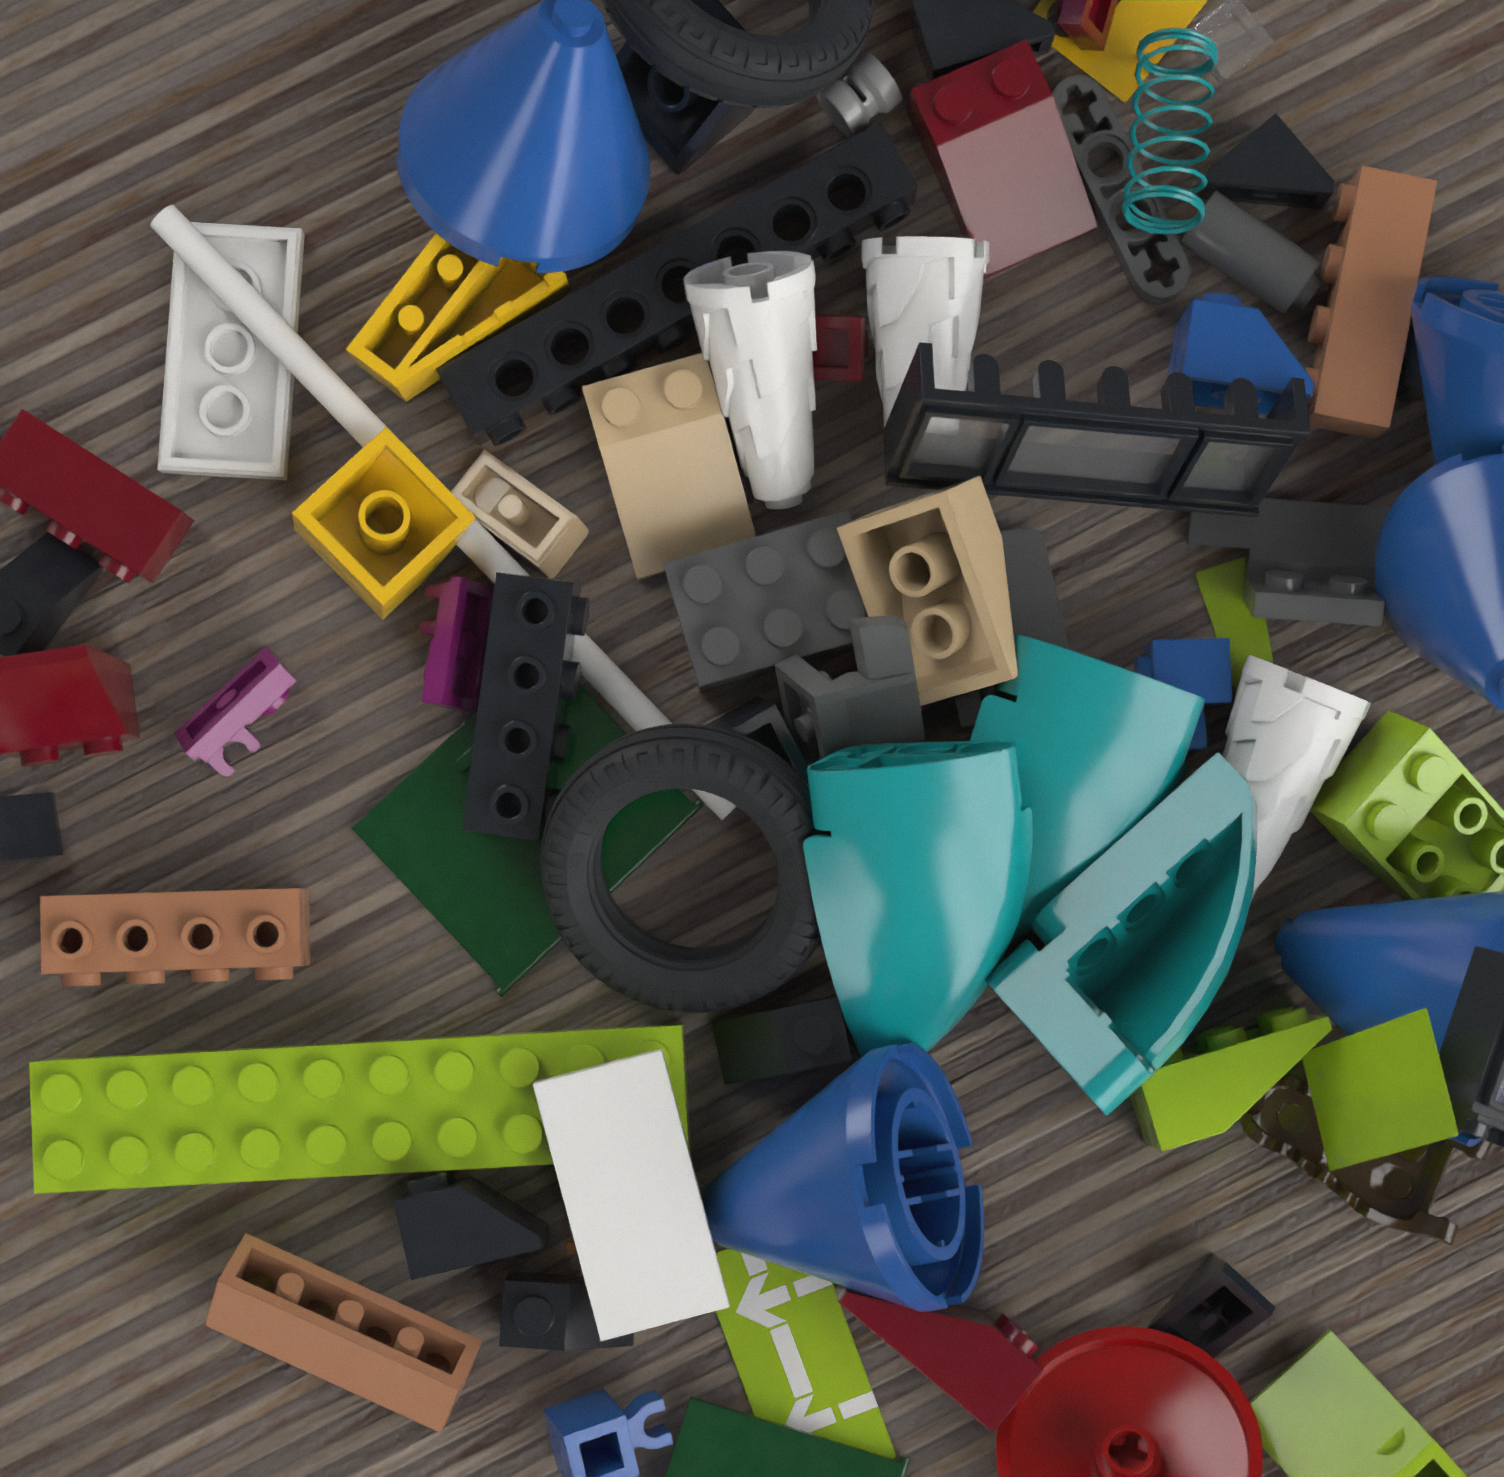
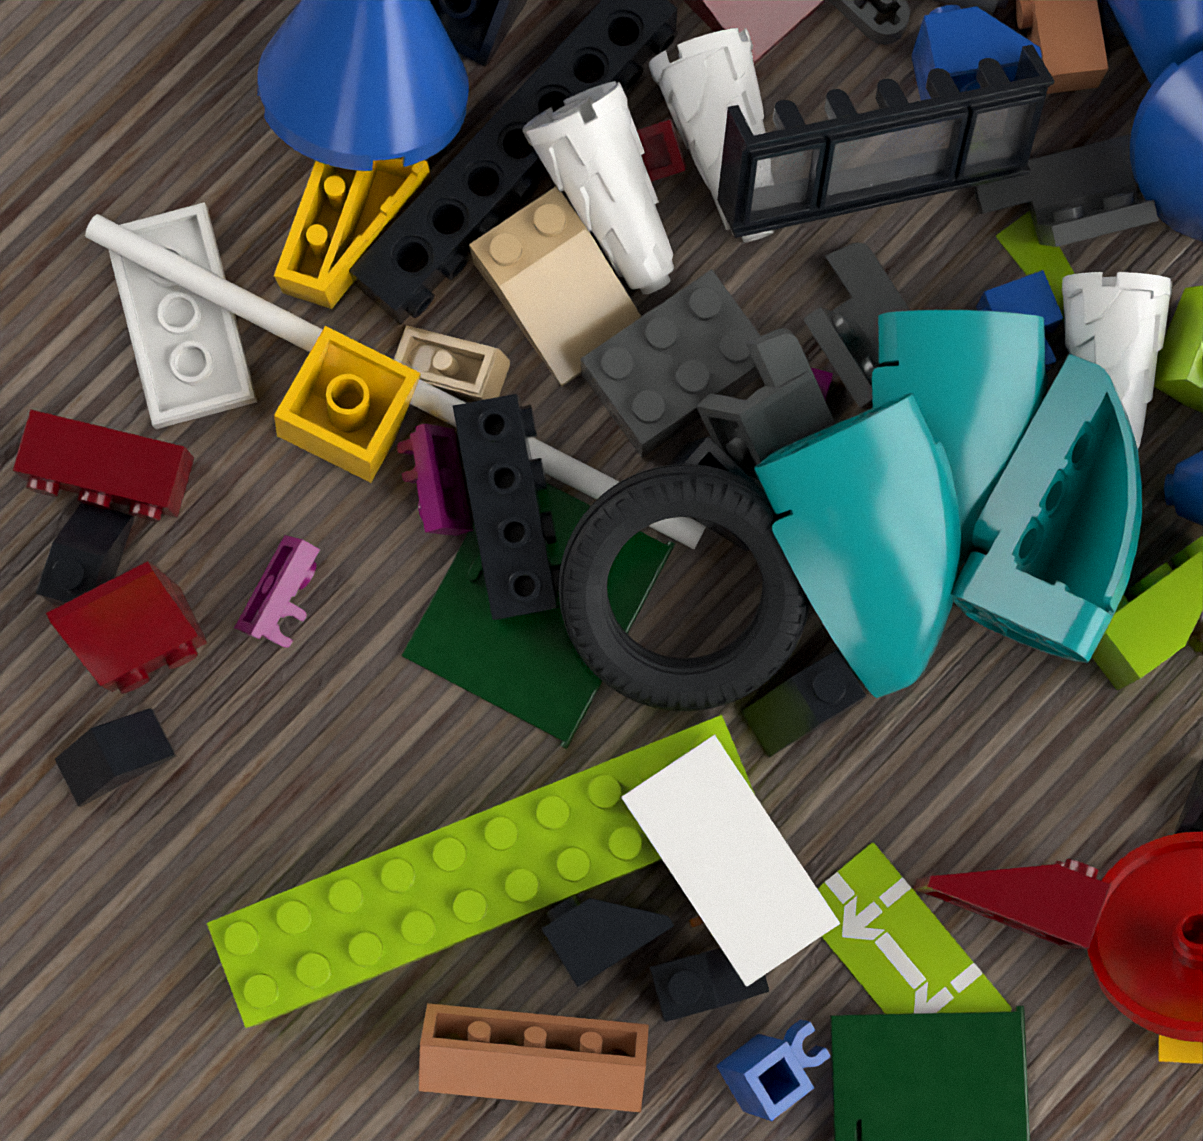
camera: 15 degrees left, 5 degrees down
(175, 932) = (288, 783): nougat brick -> none
(863, 1186) = (909, 793): blue cone -> none
(945, 575) = (806, 285): tan slope -> none

